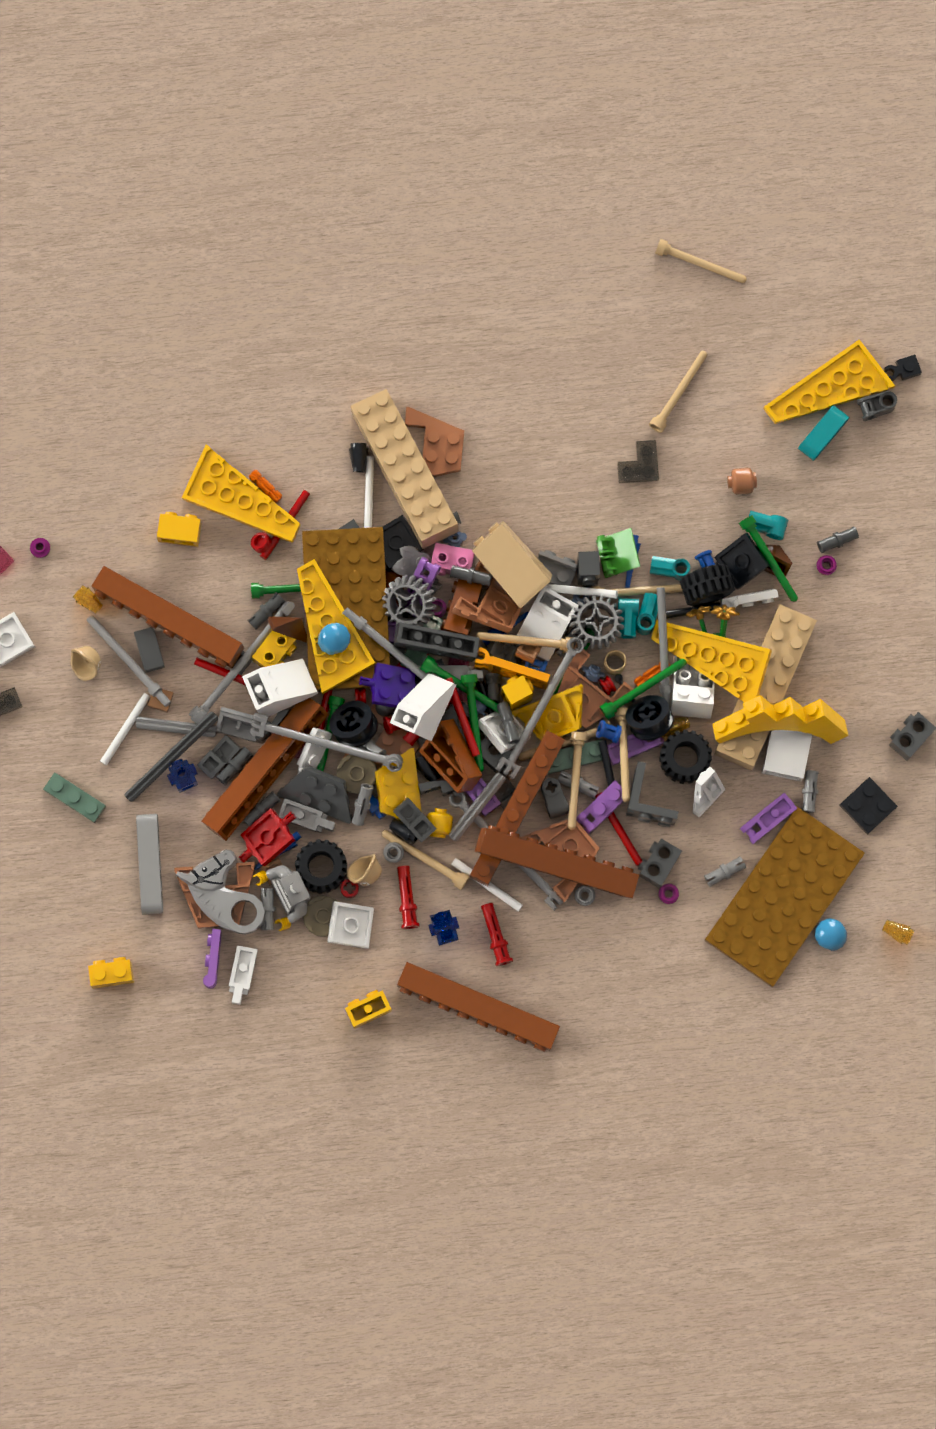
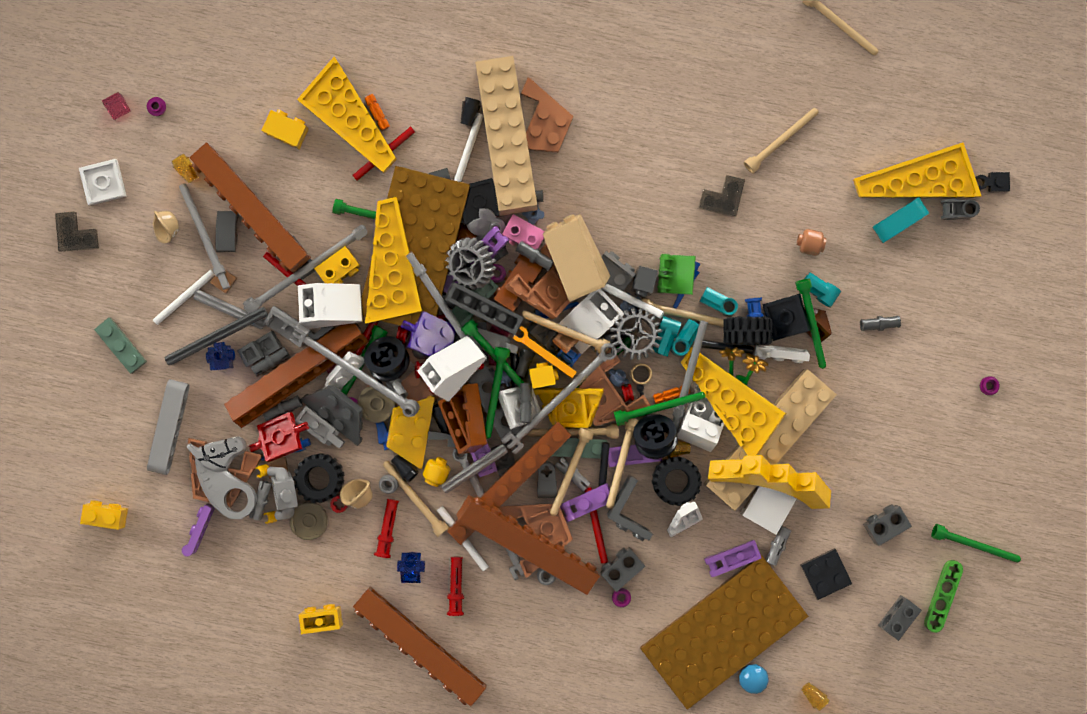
camera: 20 degrees right, 10 degrees up
(242, 972) = (221, 550): white hinge -> none
(261, 542) = (356, 163): red tile -> none
(266, 611) = (342, 228): dark grey pin -> none
(289, 626) = (354, 252): reddish brown slope -> none
(334, 638) = (390, 277): dark azure hair -> none
(350, 925) = (329, 538): white tile -> none
(364, 794) = (376, 426): light grey pin -> none
(414, 819) = (414, 464): dark grey slope -> none
(464, 722) = (485, 388): red bar -> none
(608, 731) = (621, 439): blue bush -> none
(725, 871) = (678, 593): light grey pin -> none
(826, 559) = (868, 343): magenta plate -> none

